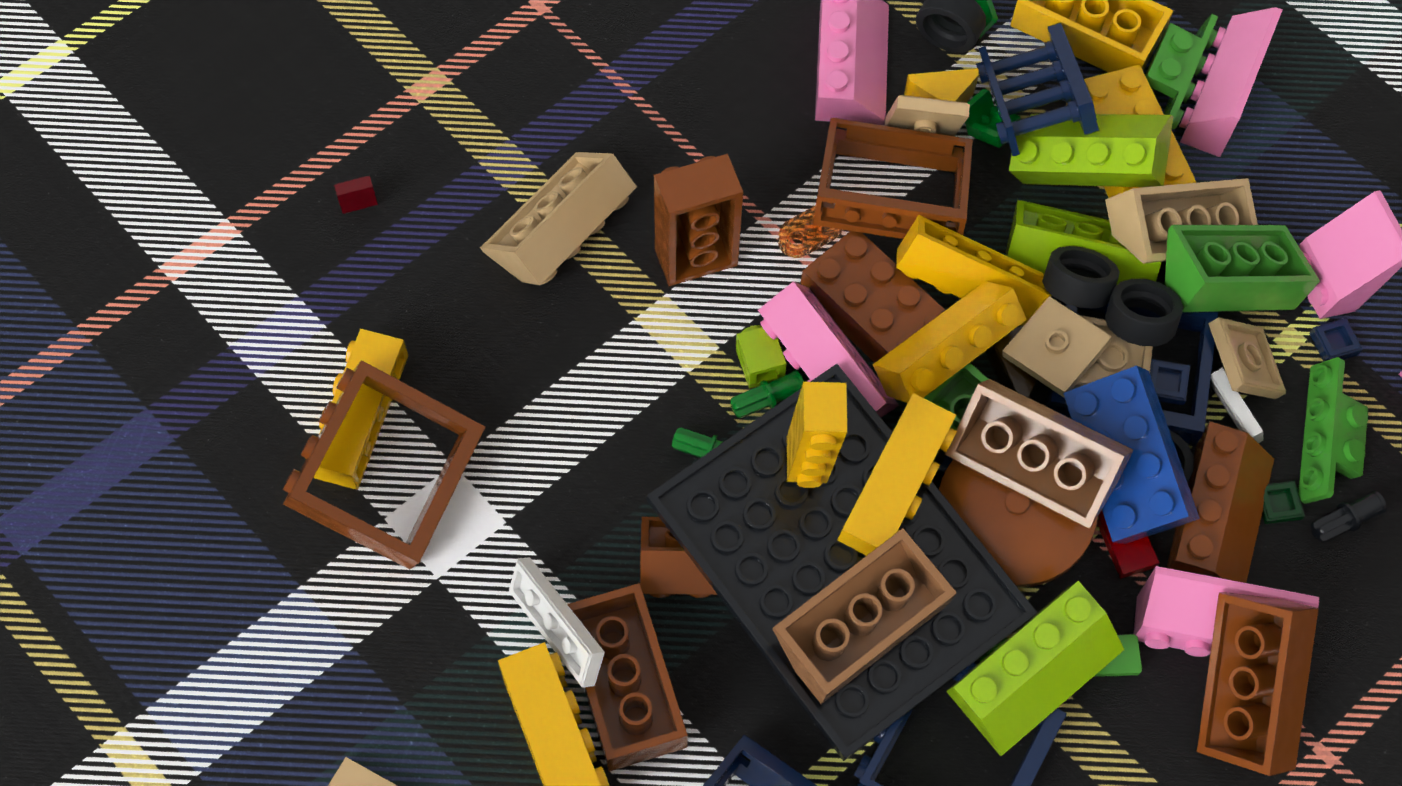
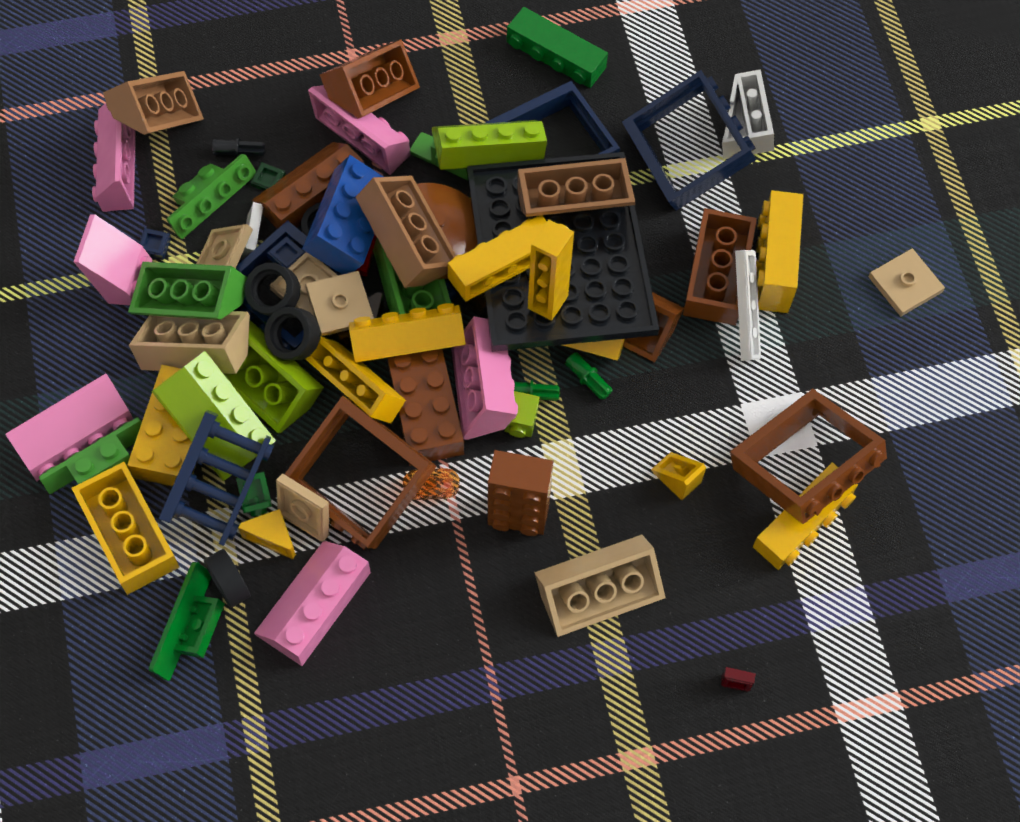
camera: 150 degrees left, 0 degrees up
(534, 381) = (679, 473): none -> yellow slope

